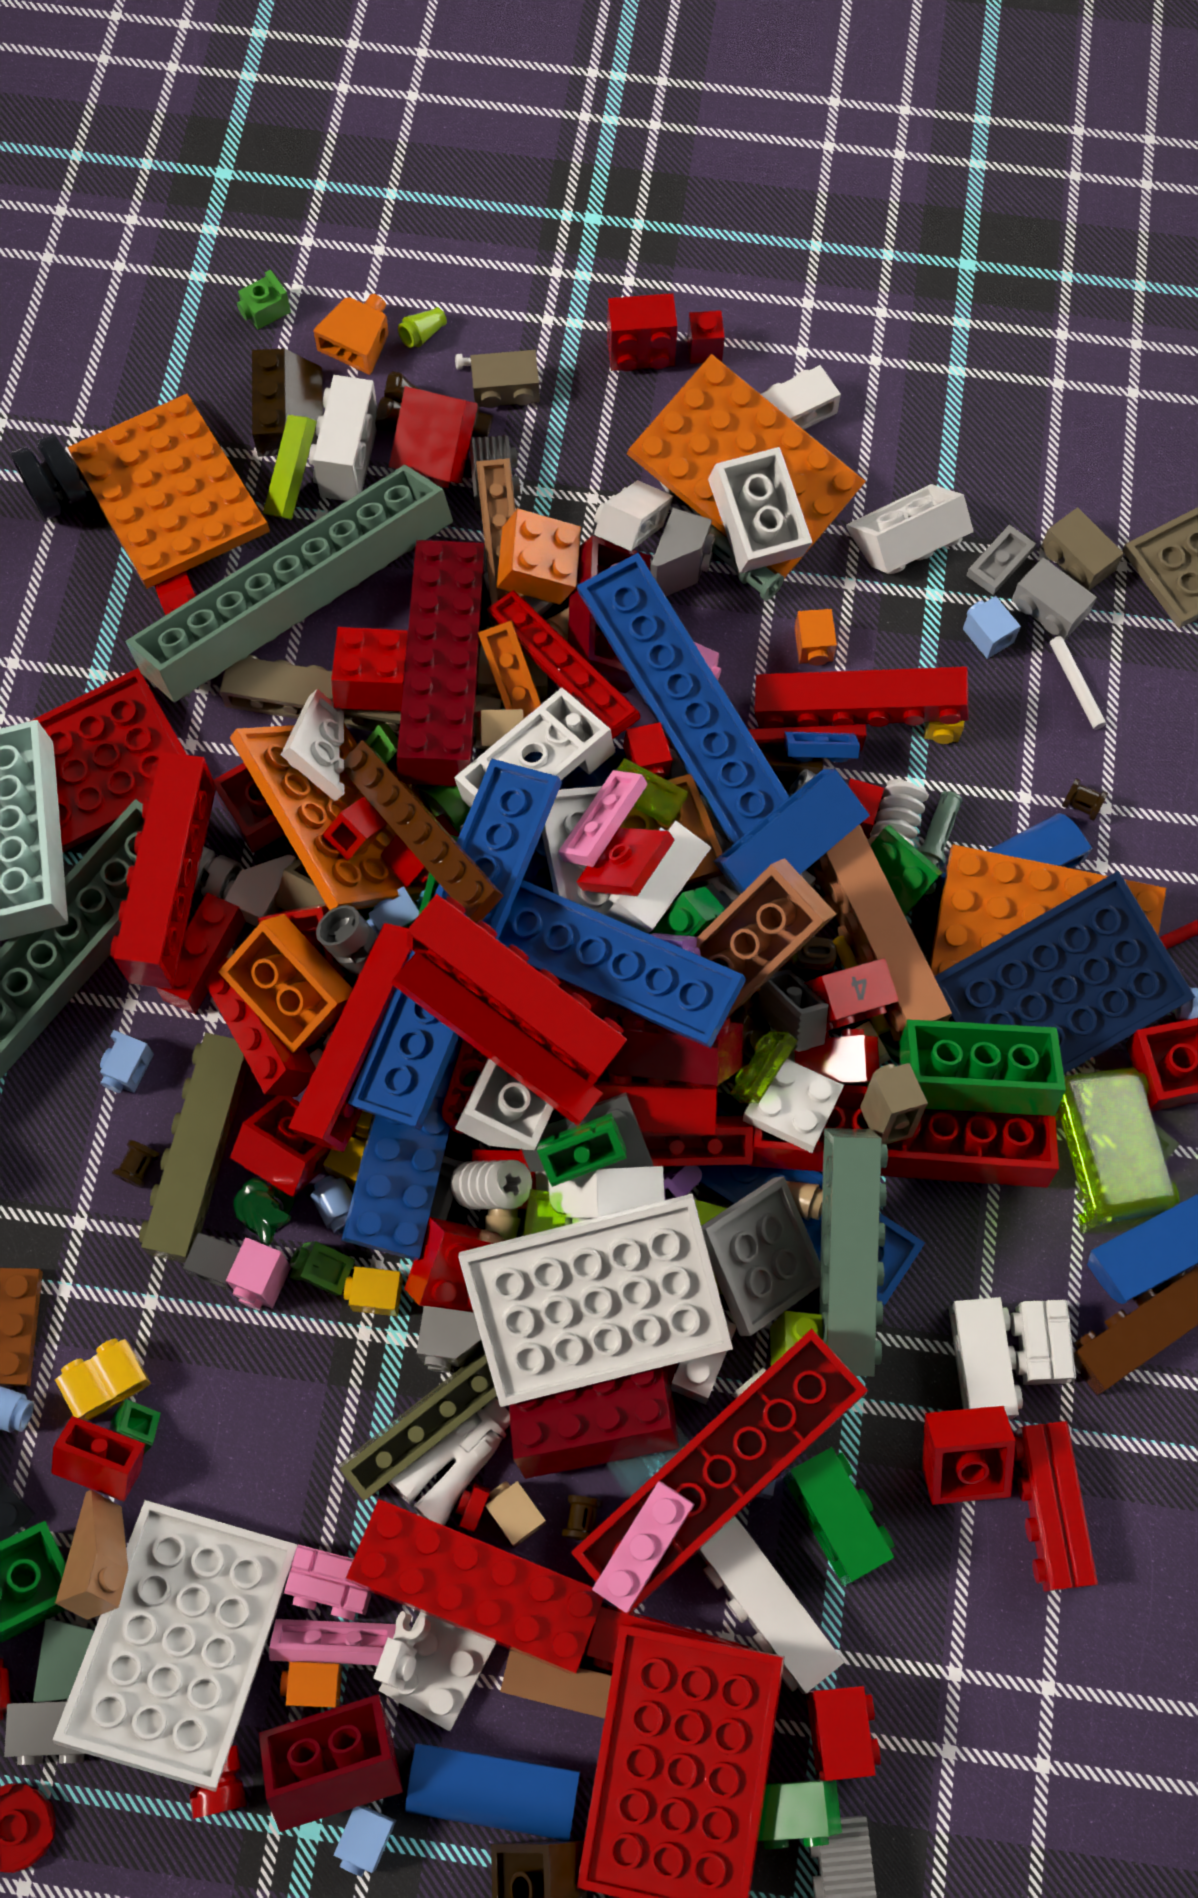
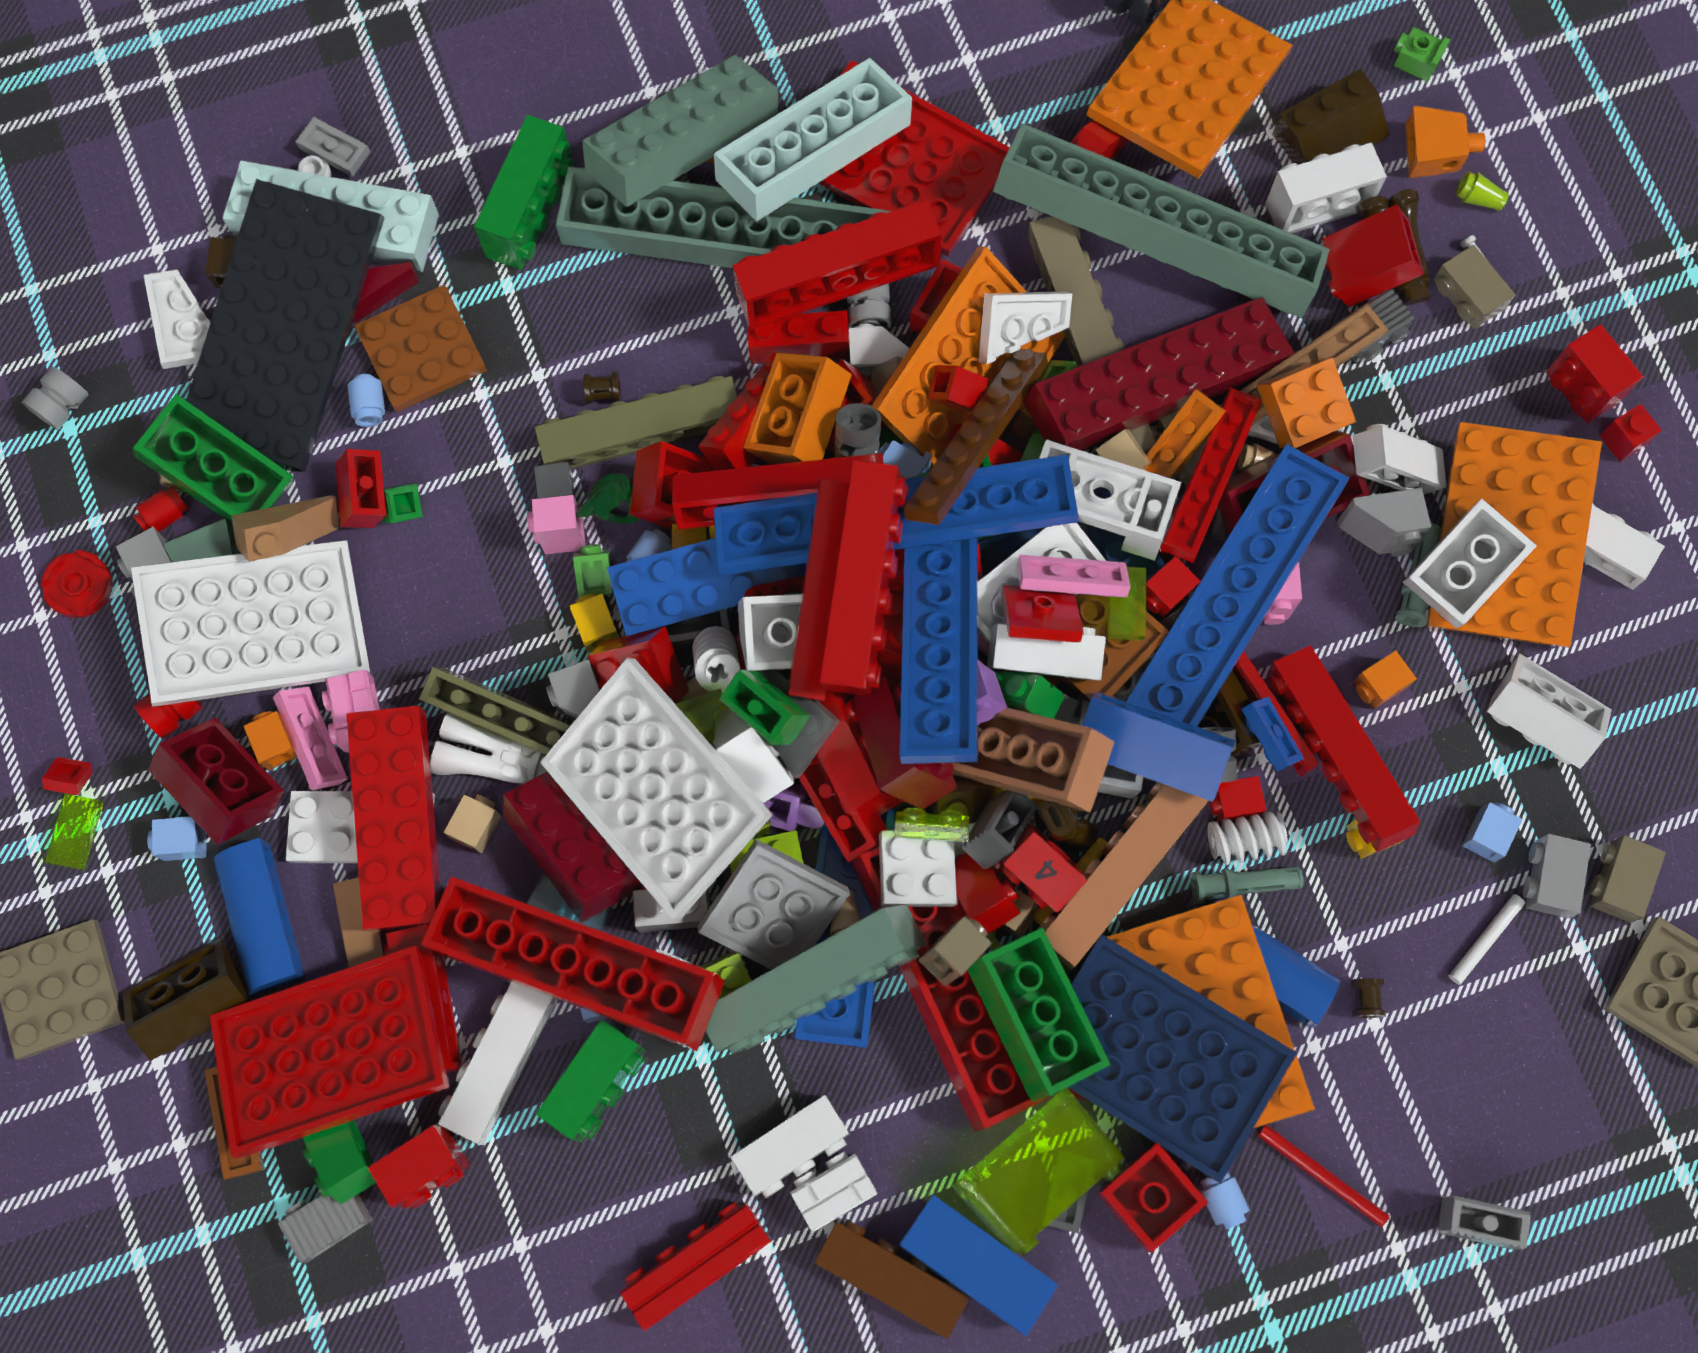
camera: 65 degrees right, 5 degrees up
(103, 1380) = (422, 459): yellow brick -> none
(124, 1063) = (677, 333): light blue brick -> none
(290, 466) = (1269, 160): lime tile -> none
(369, 668) = (1113, 319): red brick -> none
(398, 1656) = (316, 789): white plate -> none
(471, 1506) = (461, 785): red plate -> none
(581, 1517) = (505, 869): dark brown bush -> none
(643, 1547) = (478, 929): bright pink plate -> none
(904, 867) = (1193, 862): green wing -> none
(968, 1455) = (696, 1166): red brick -> none
(1001, 559) = (1570, 809): light grey plate -> none

